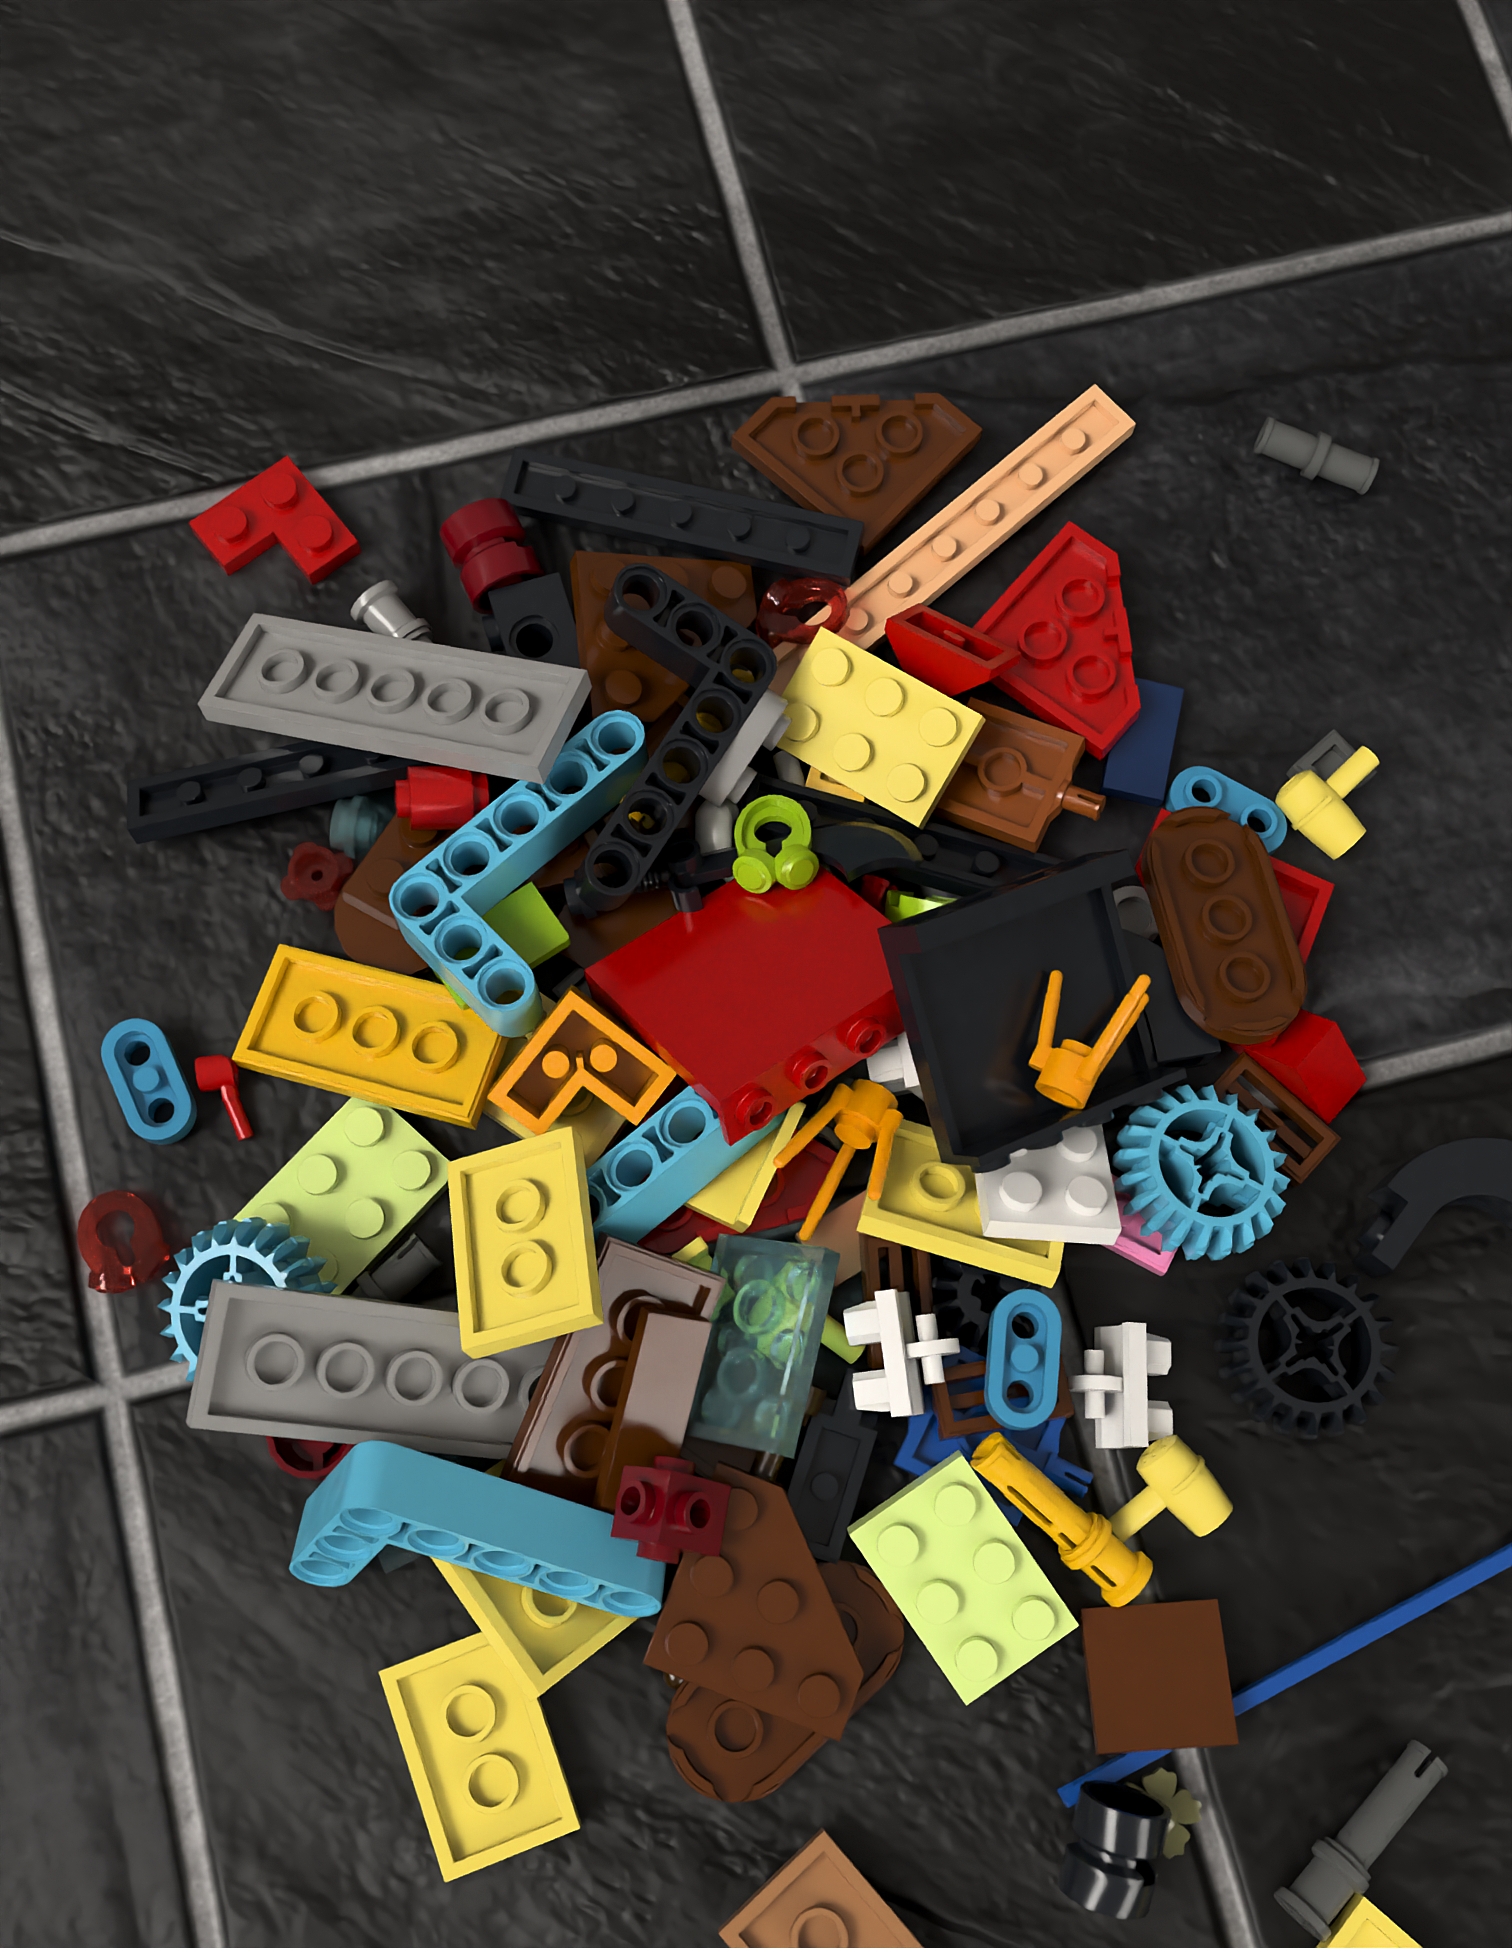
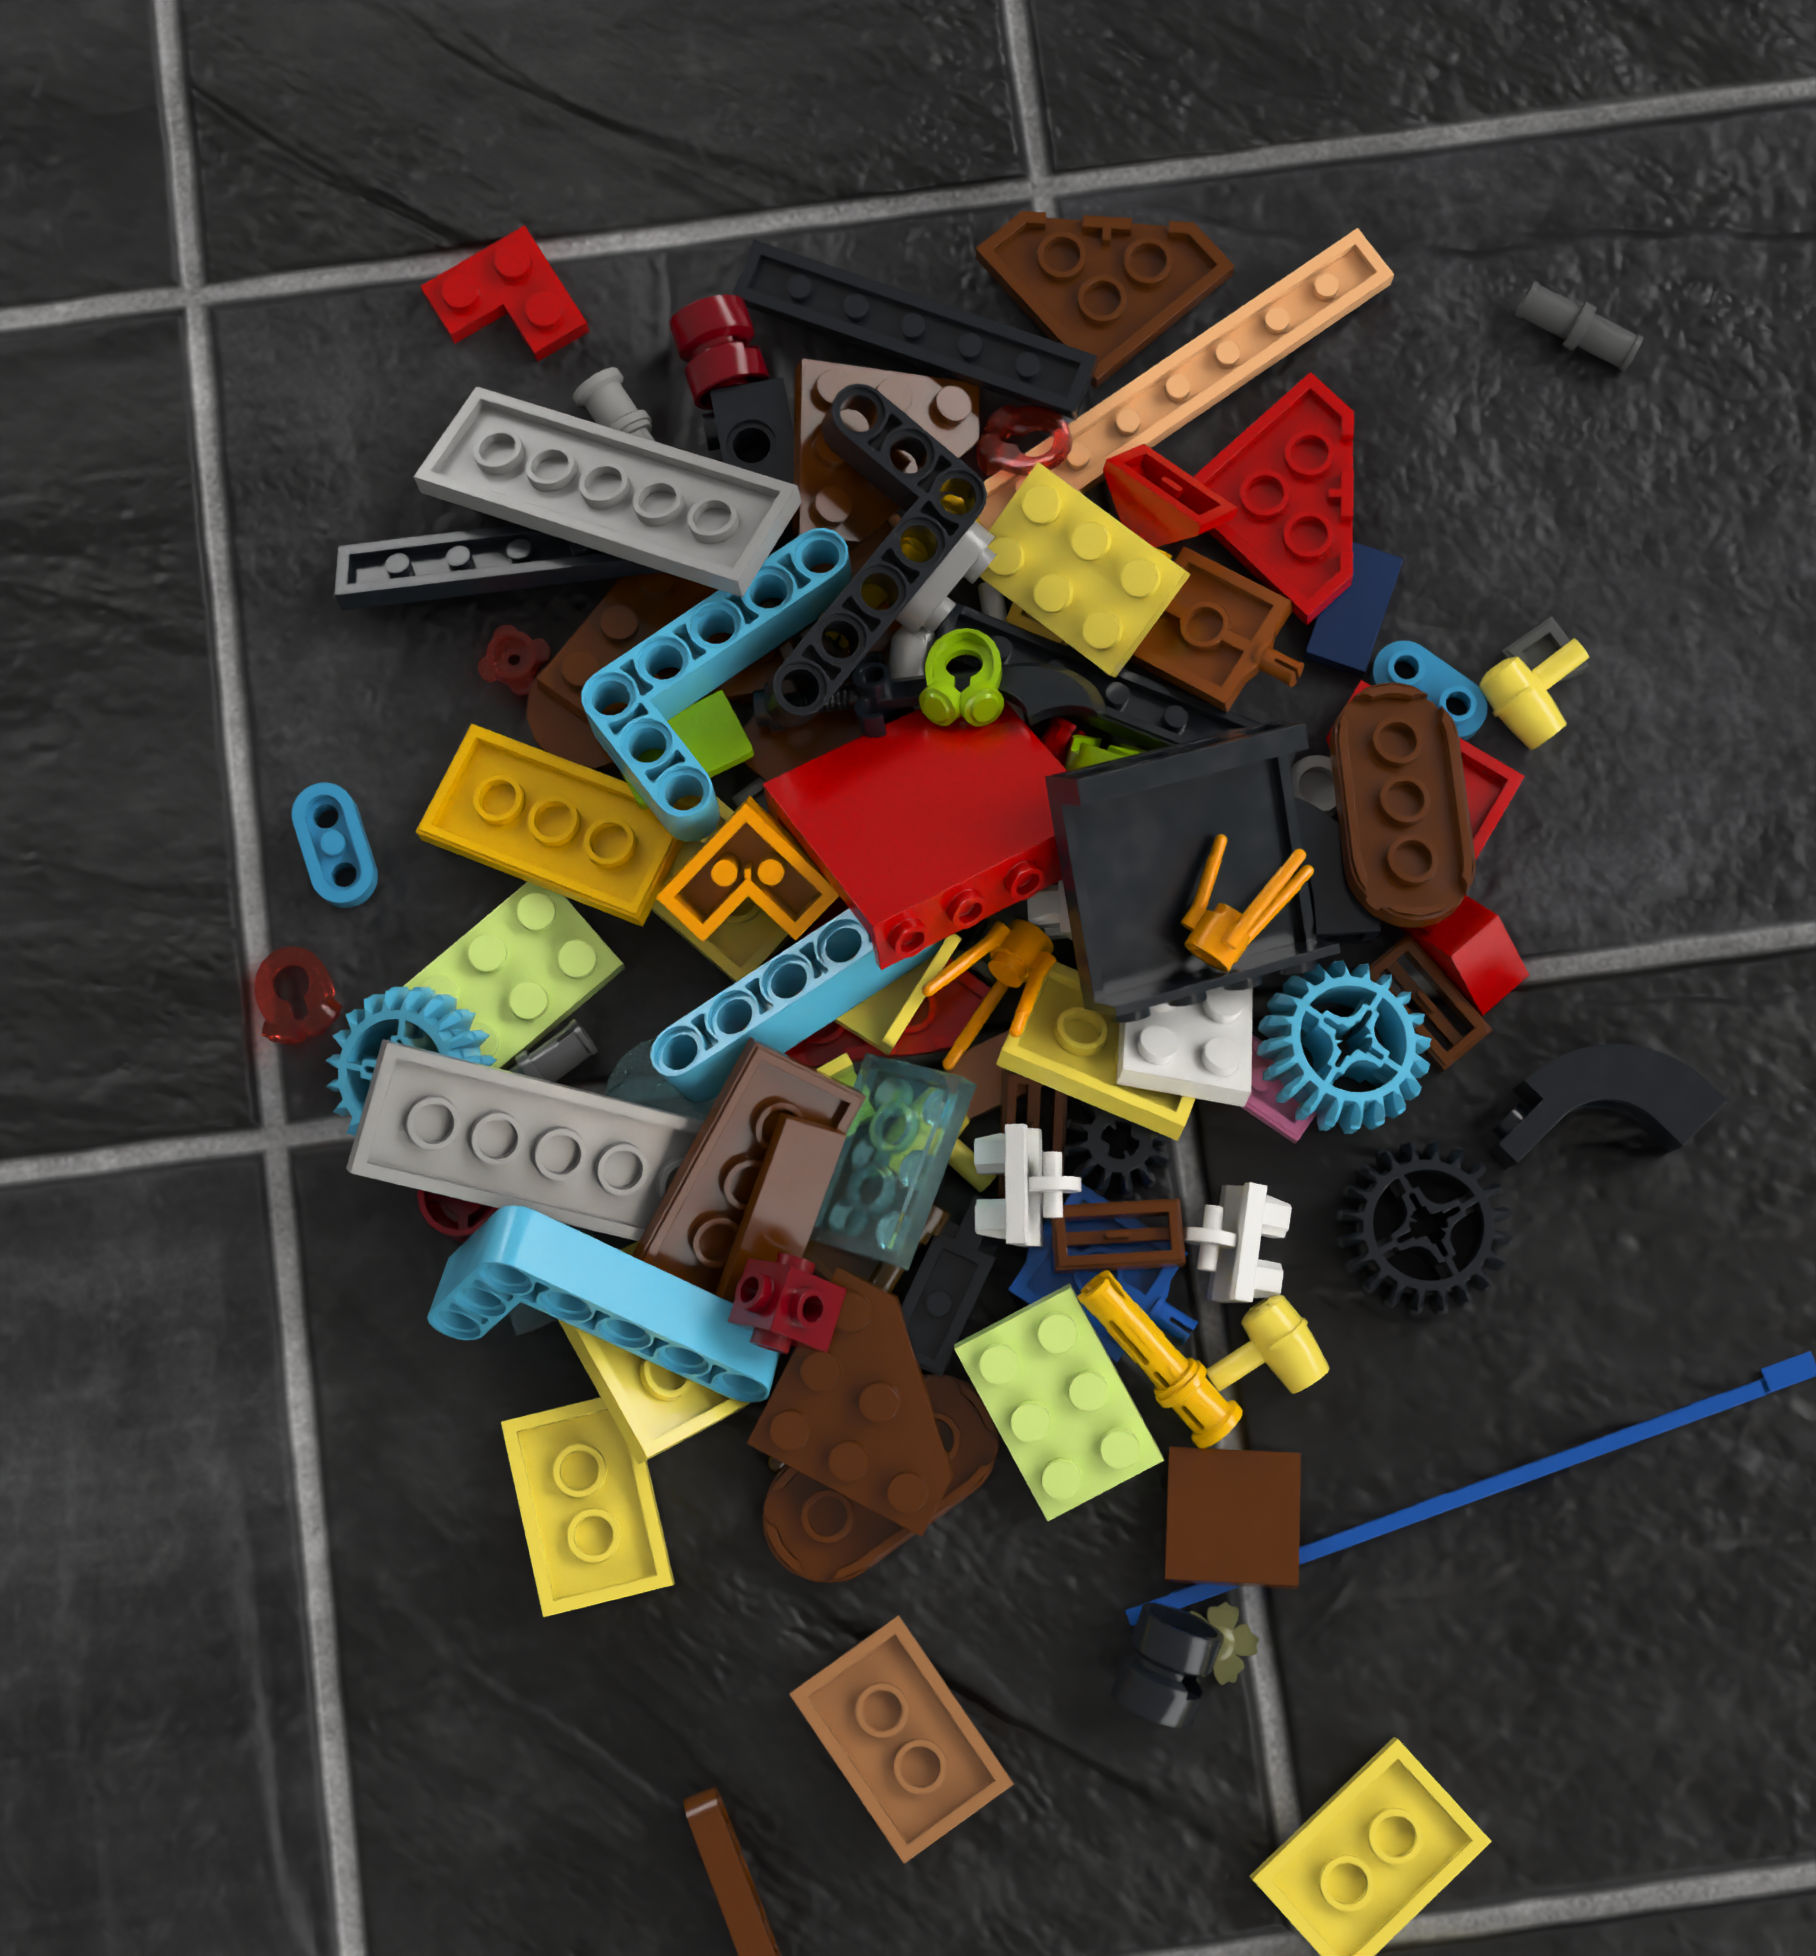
camera: 15 degrees right, 5 degrees up
(222, 1074) = (404, 845): red hand -> none
(353, 826) = (554, 614): clear light blue plate -> none
(440, 797) = (641, 597): red brick -> none
(523, 1243) = (675, 1039): light yellow plate -> none
(1023, 1361) = (1140, 1206): dark azure plate -> none
(1342, 1863) = (1383, 1707): dark grey pin -> none

